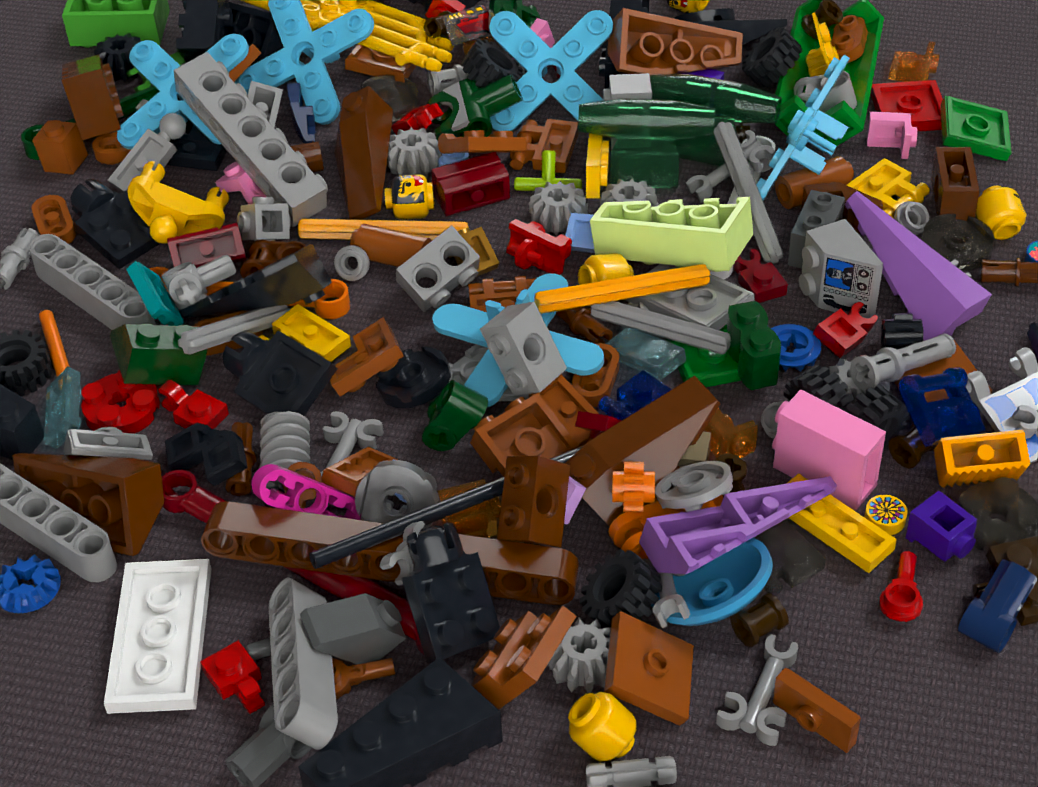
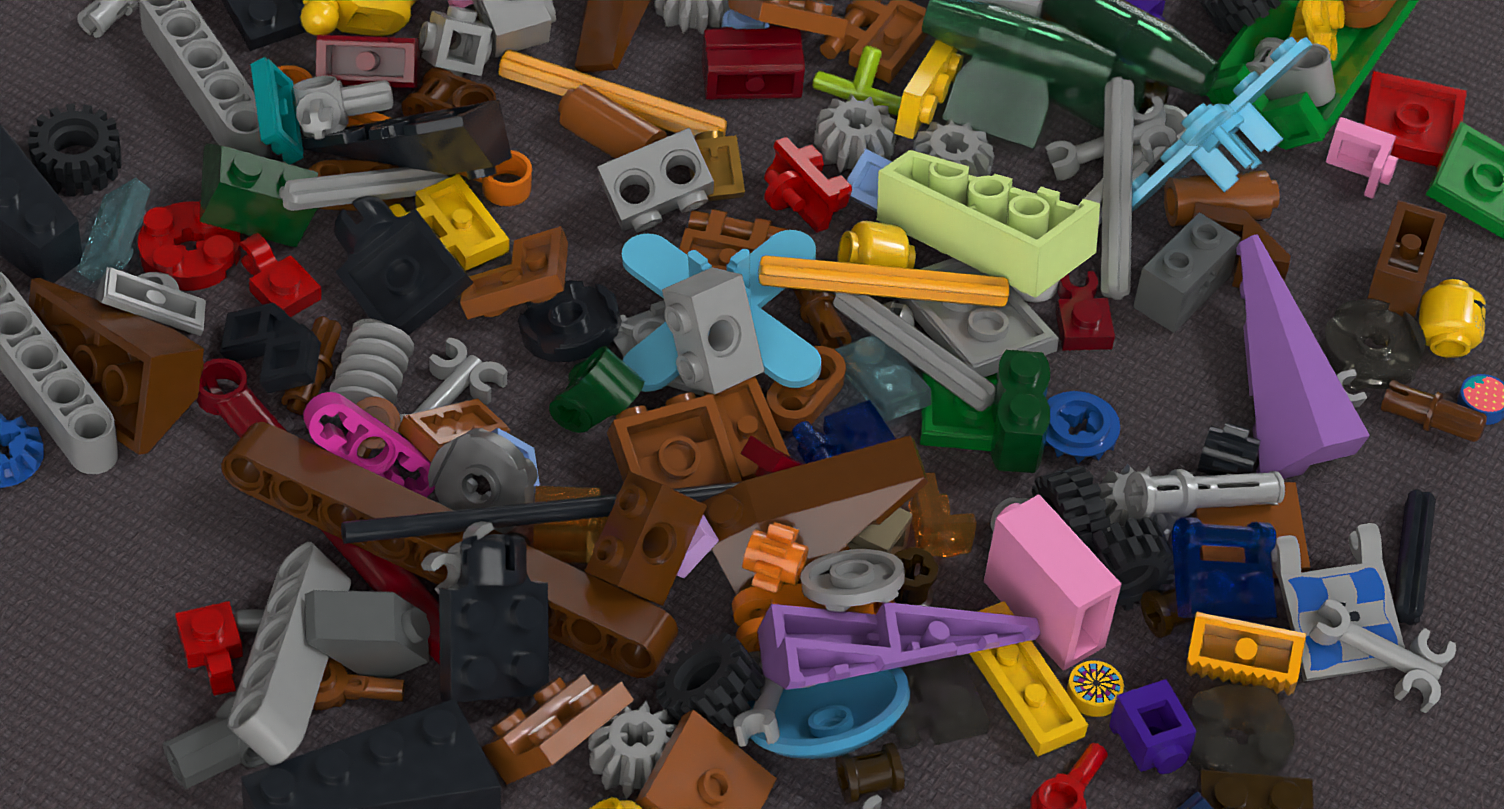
camera: 10 degrees right, 5 degrees up
(53, 341) = (133, 133): orange bar -> none
(158, 637) = (137, 566): white plate -> none
(342, 267) = (539, 139): light grey plate -> none
(410, 196) = (665, 59): yellow head -> none
(840, 269) = (1183, 340): light grey slope -> none
(844, 331) = (1157, 426): red plate -> none
(887, 180) = (1312, 227): yellow plate -> none
(914, 67) = (1448, 59): clear orange bracket -> none
(916, 212) = (1339, 287): light grey plate -> none

